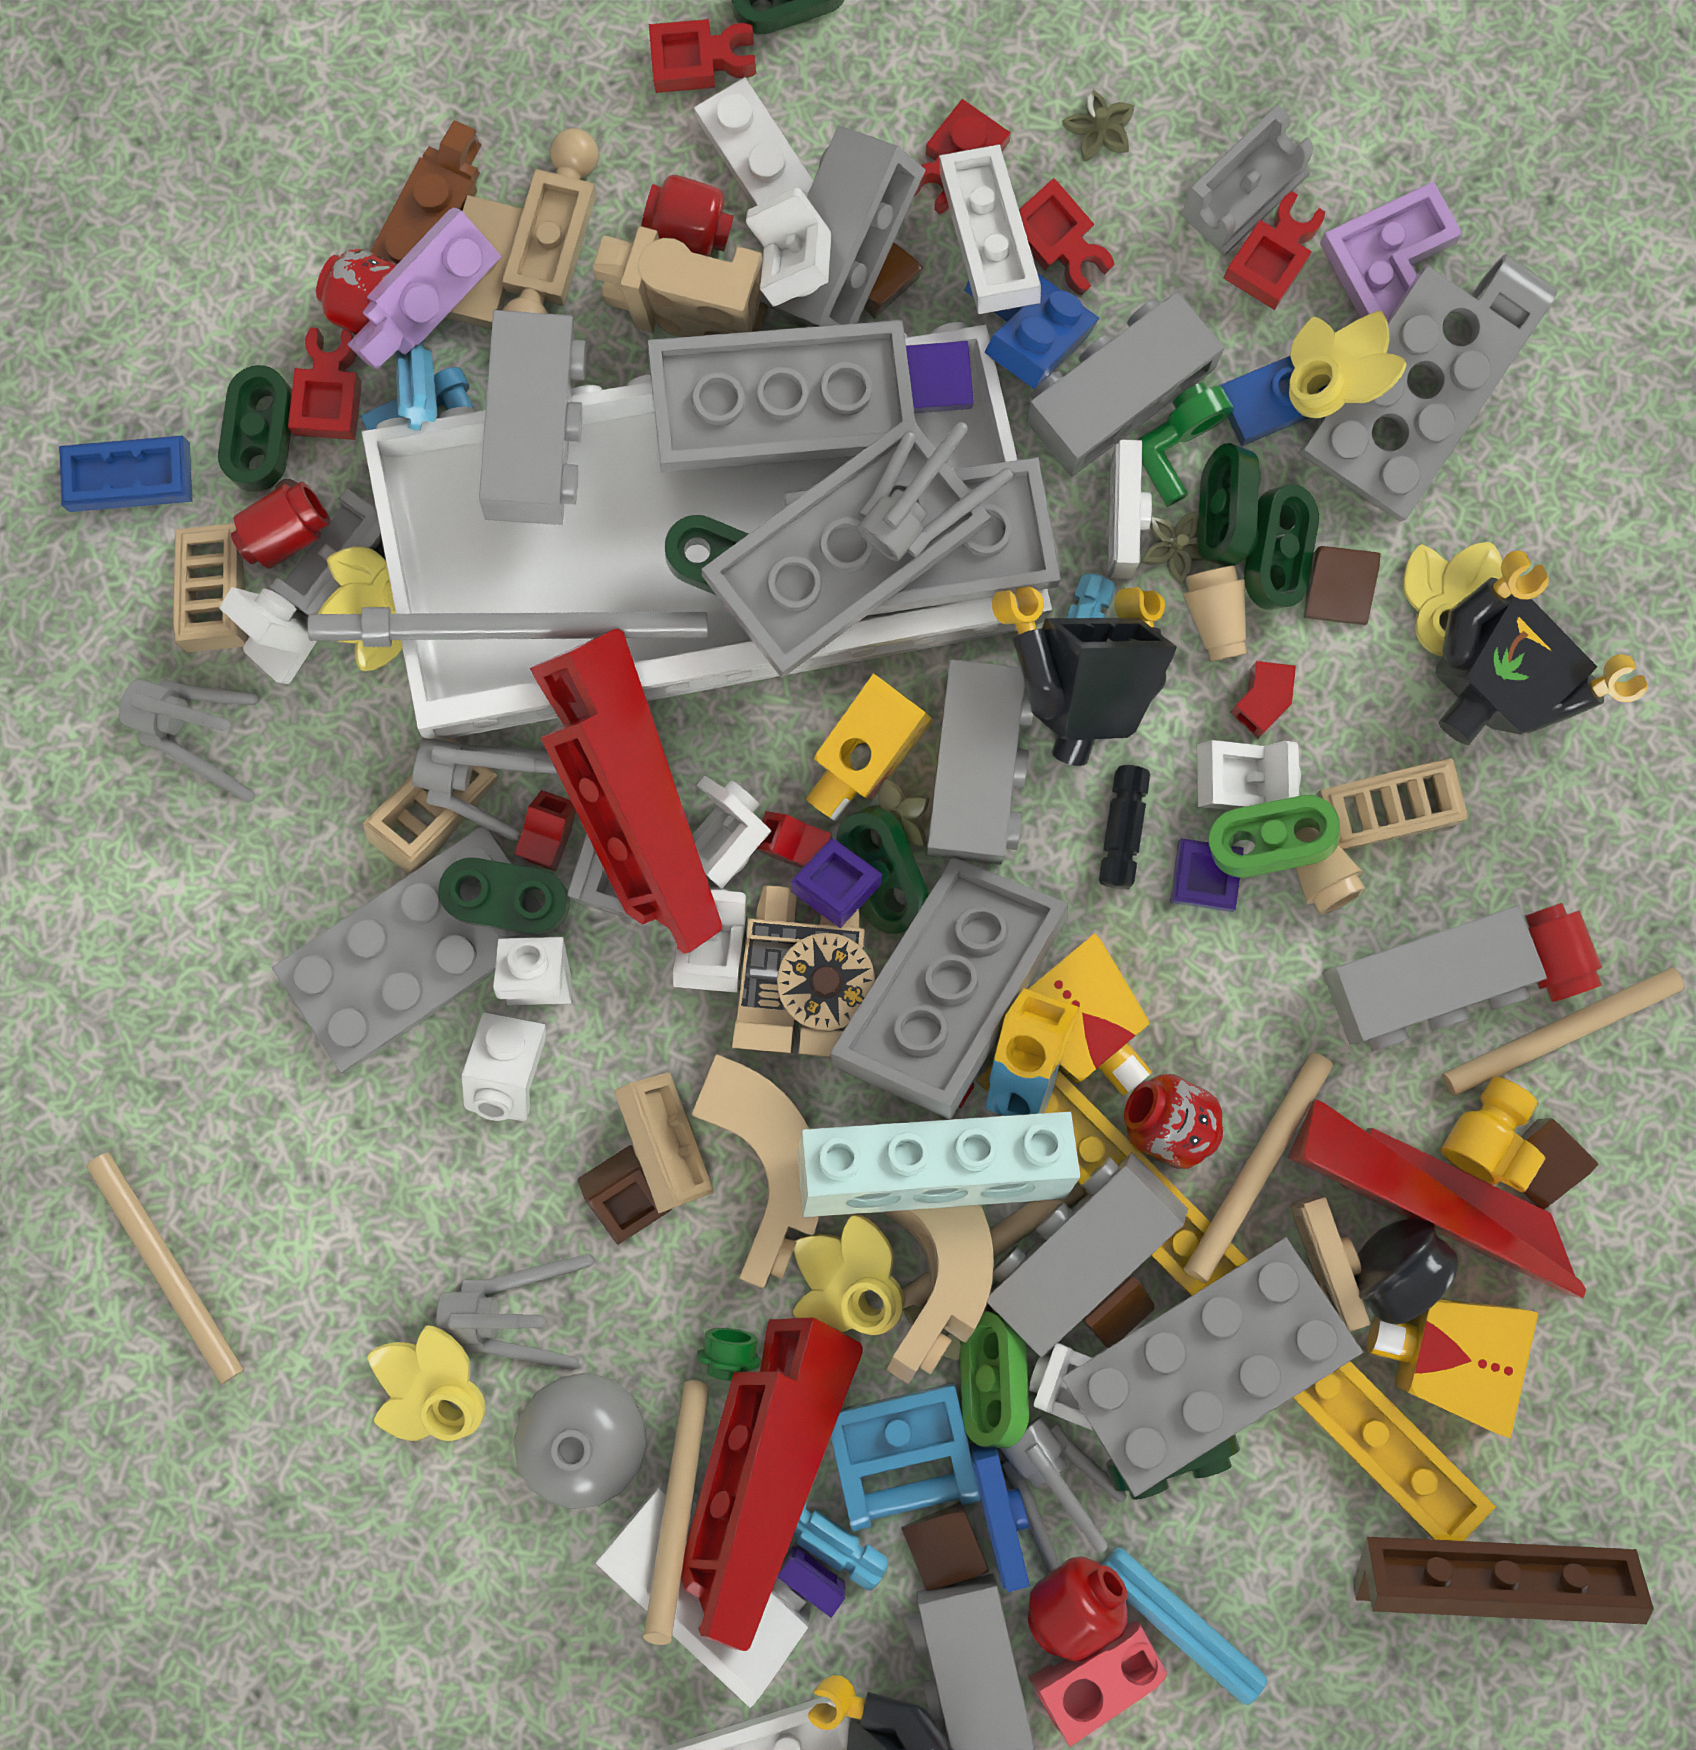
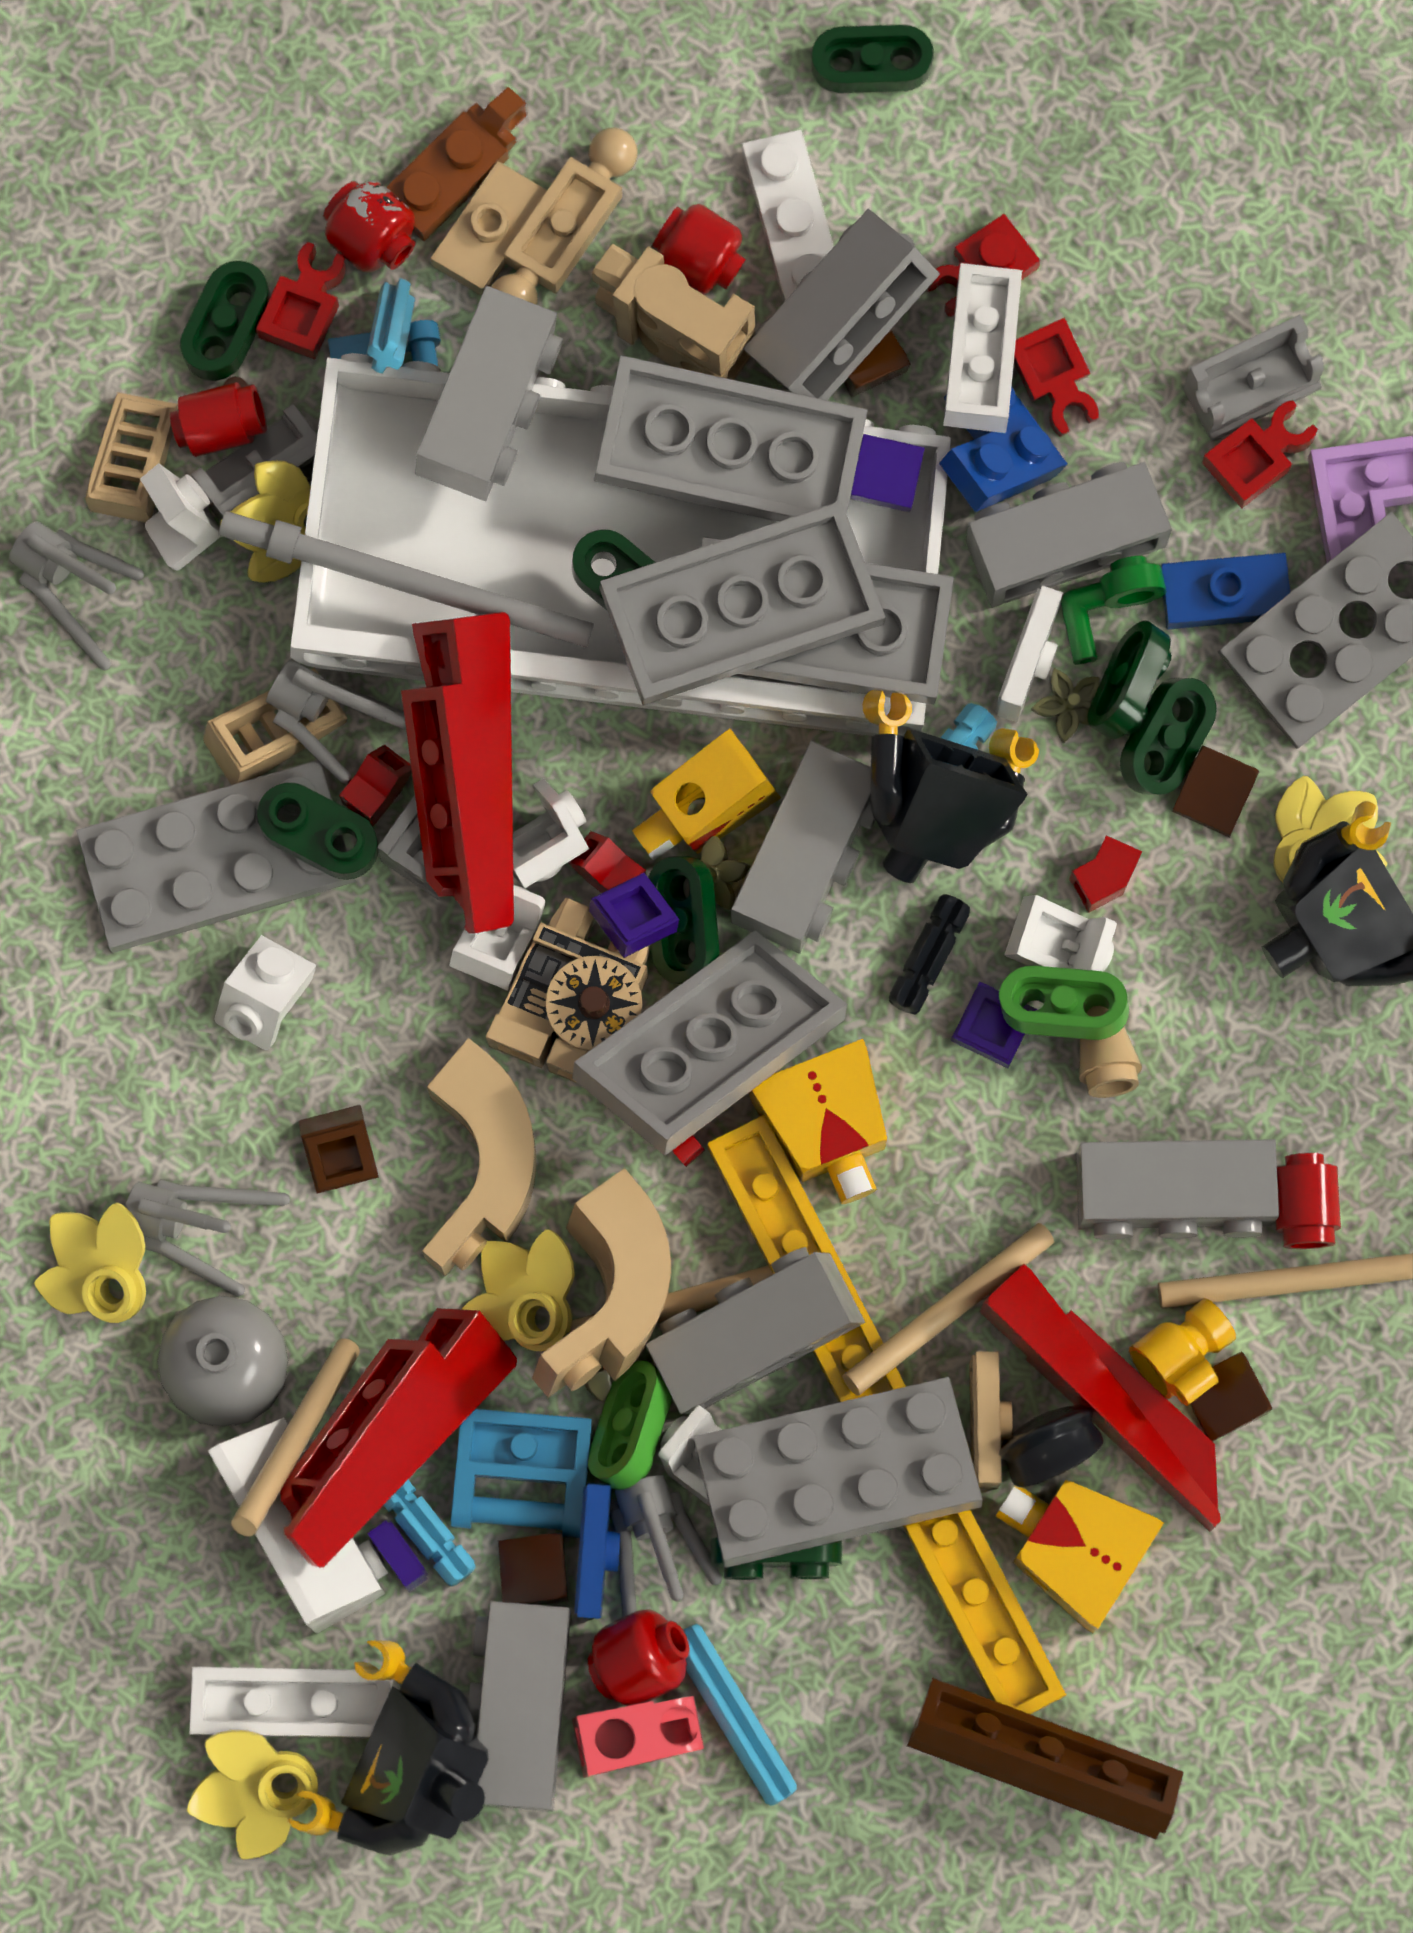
camera: 15 degrees right, 5 degrees down
(125, 473) = (87, 325): blue plate -> none
(424, 288) = (427, 239): lavender hinge -> none
(532, 971) = (322, 910): white bracket -> none
(663, 1141) = (392, 1107): tan plate -> none
(688, 54) = (753, 91): red plate -> none
(728, 1352) = (387, 1322): green plate -> none
(794, 246) = (788, 309): white bracket -> none
(895, 521) = (792, 590): light grey plant -> none
(937, 1164) = (640, 1196): light aqua brick -> none
(1029, 1054) = (759, 1130): yellow leg -> none
(1101, 125) = (1132, 279): olive plant -> none
(1119, 1312) = (769, 1396): reddish brown slope -> none
(1173, 1121) = (880, 1239): red head -> none
(1218, 611) = (1087, 778): tan cone -> none
(1348, 361) = (1278, 580): light yellow plate -> none
(1446, 791) = (1215, 1040): tan slope -> none

